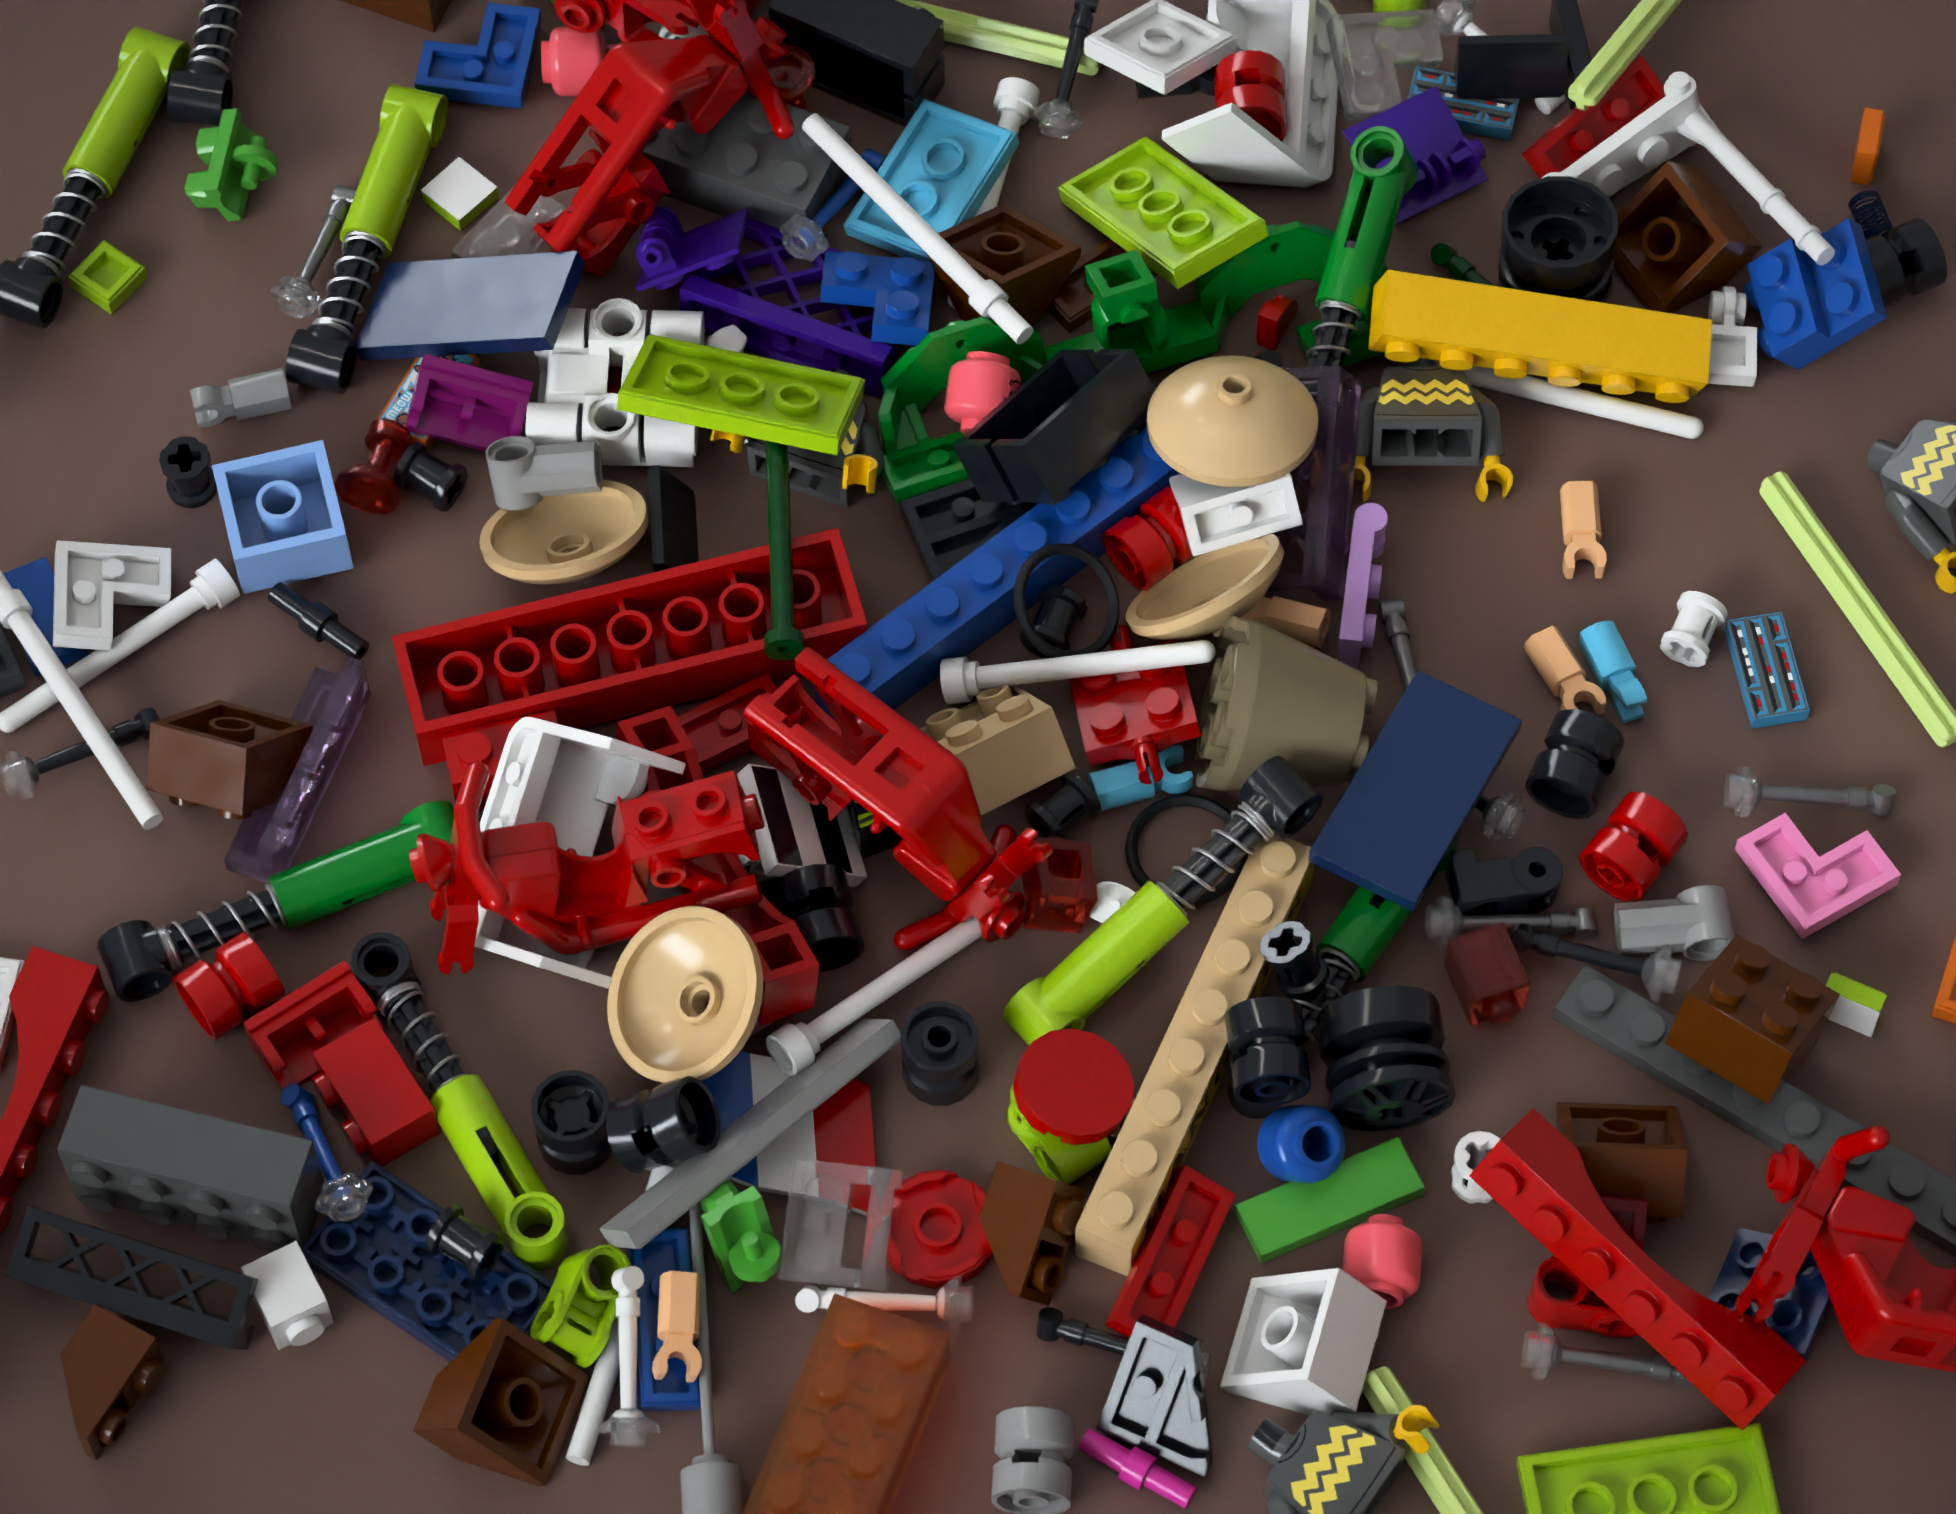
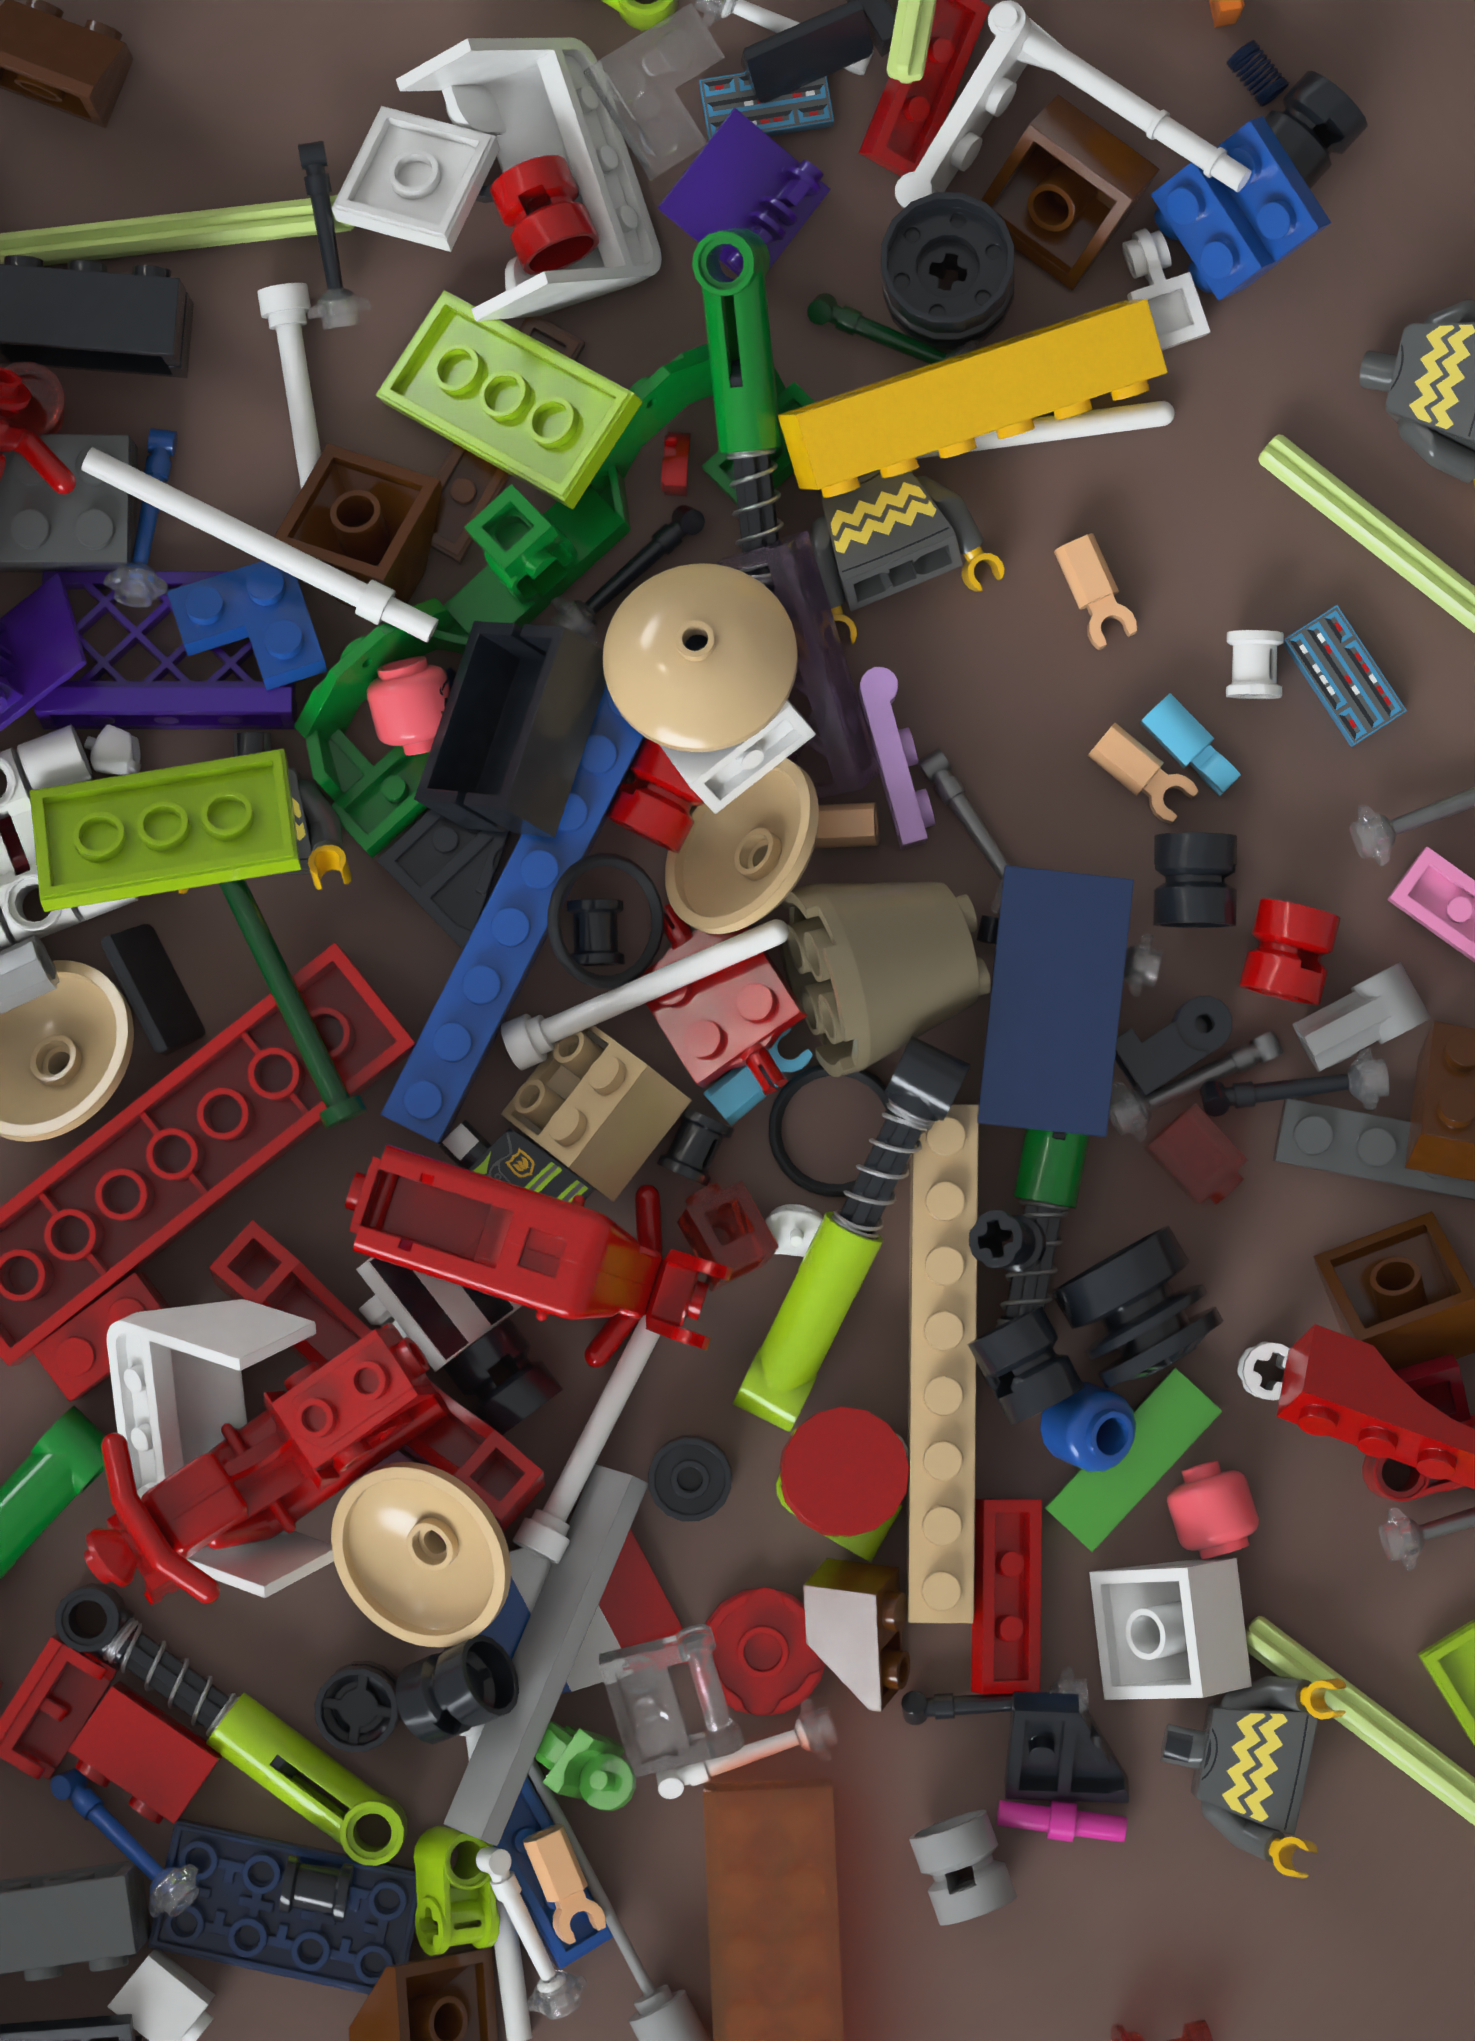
camera: 25 degrees left, 25 degrees up
(719, 725) = (312, 1190): red plate -> none
(941, 169) = (241, 438): medium azure tile -> none

